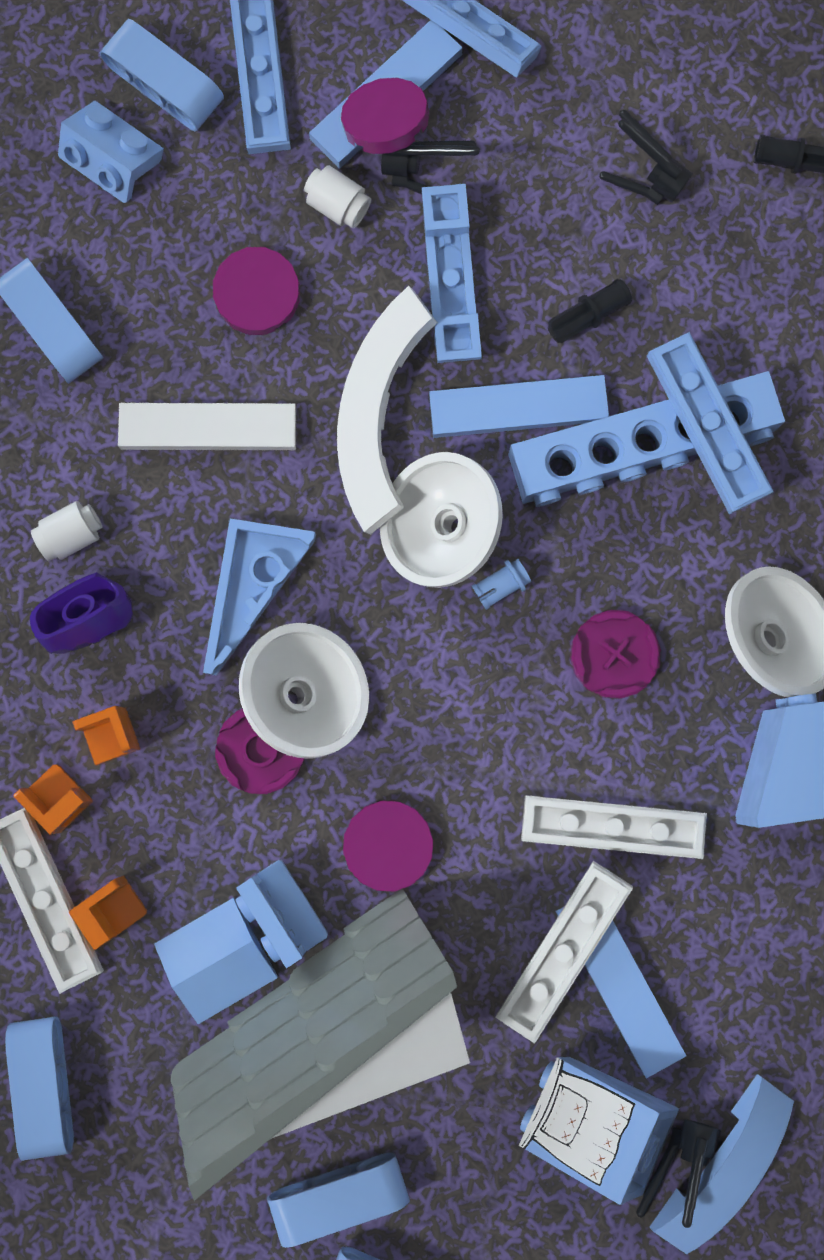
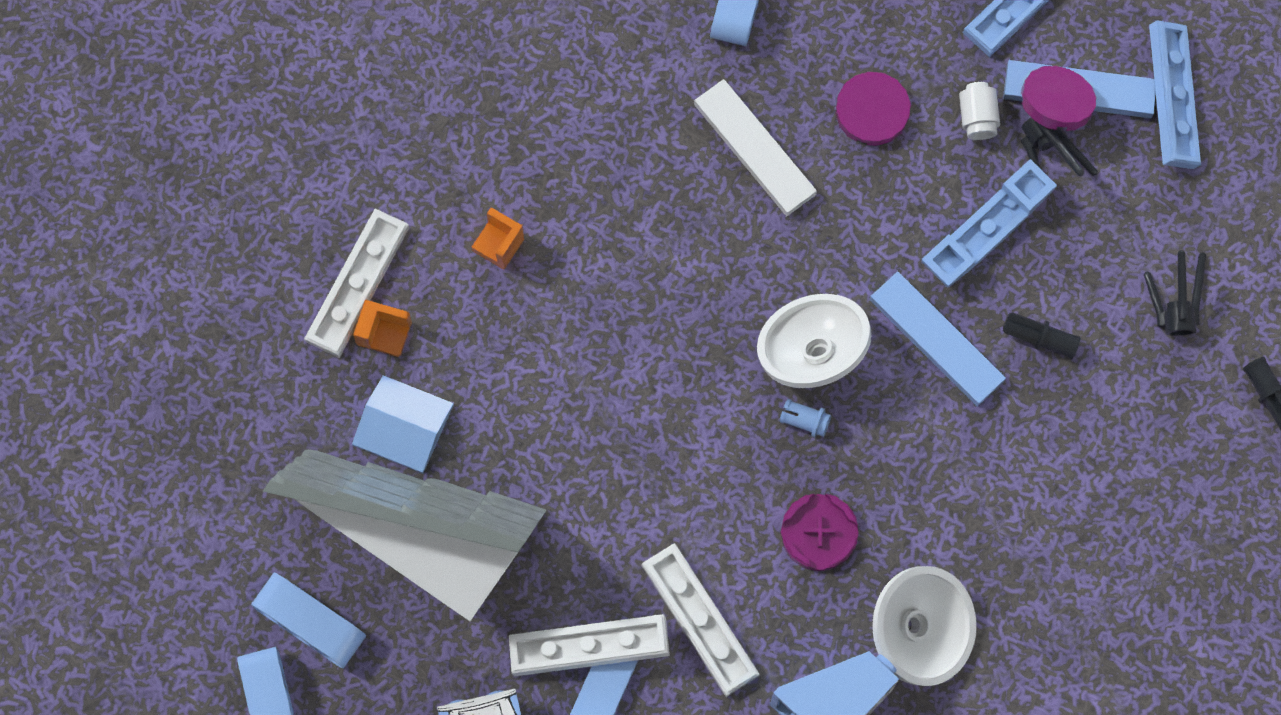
camera: 50 degrees right, 10 degrees down
(39, 1088) = (234, 372): light blue beam -> none
(54, 800) = (428, 239): orange panel -> none
(66, 531) = (611, 111): white brick -> none
(81, 614) = (564, 162): dark purple piece -> none
(252, 572) = (679, 250): light blue wing -> none
(269, 771) = (566, 357): magenta tile -> none
(281, 912) = (469, 440): light blue bracket -> none
(322, 675) = (648, 333): white dish -> none
(365, 406) = (853, 236): white tile -> none
(388, 846) = (568, 477): magenta tile -> none
(709, 423) = (1025, 466): light blue tile -> none
(749, 398) = (974, 417): light blue brick -> none

